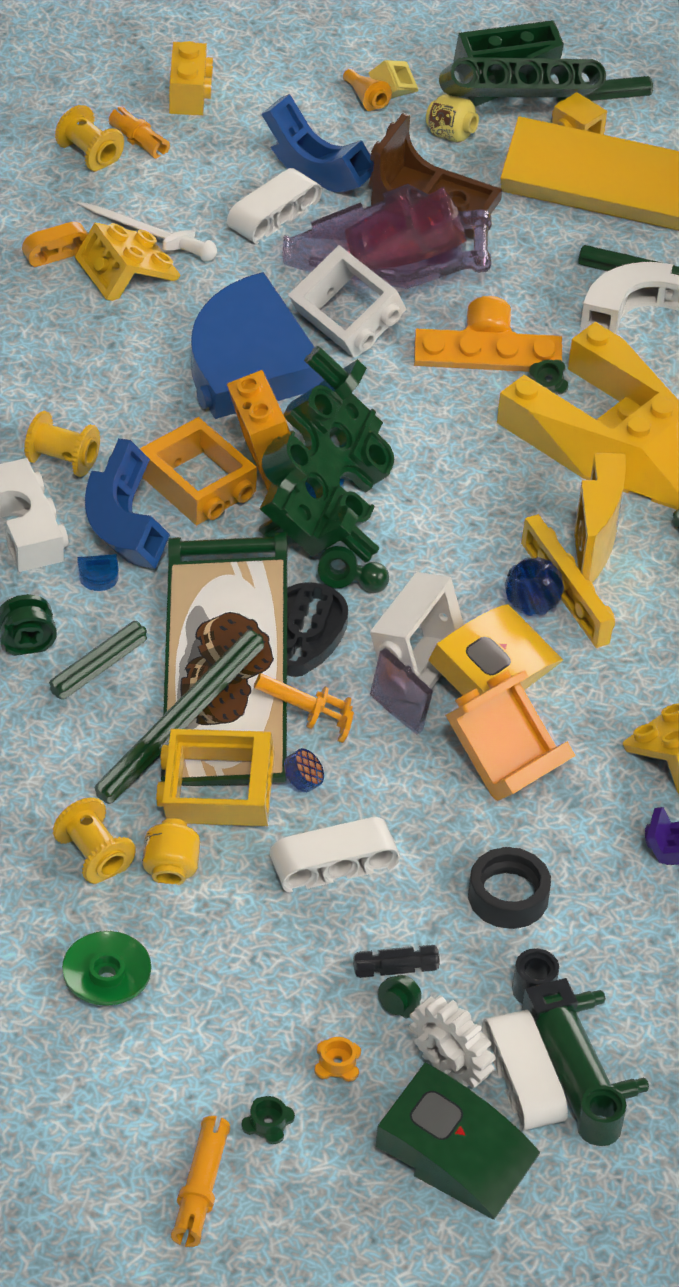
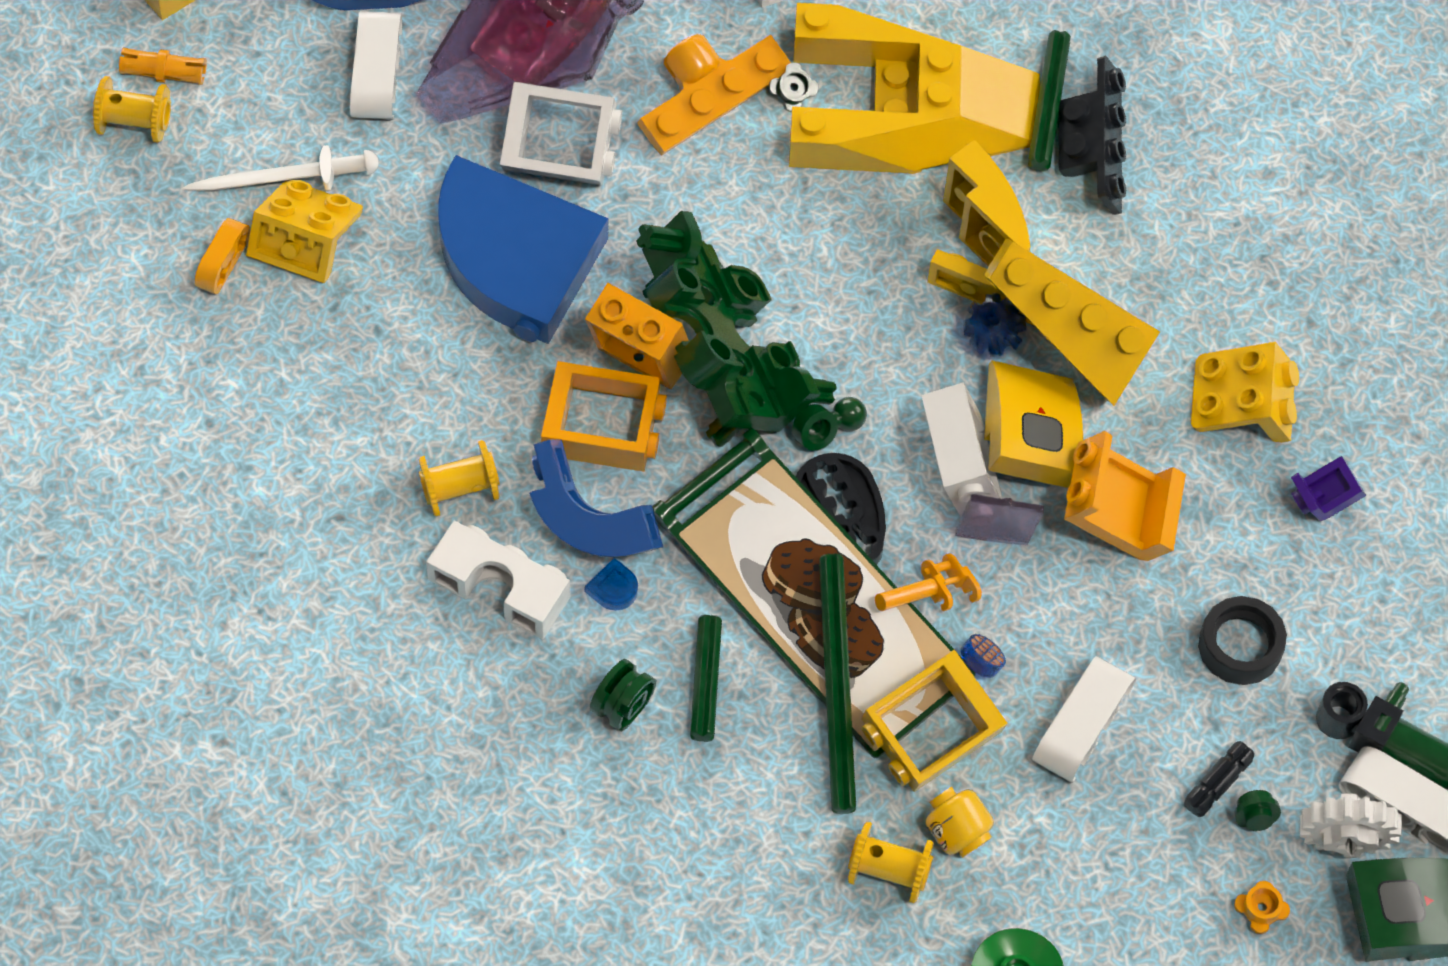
camera: 40 degrees left, 15 degrees up
(586, 609) = (1081, 324): none -> yellow wedge

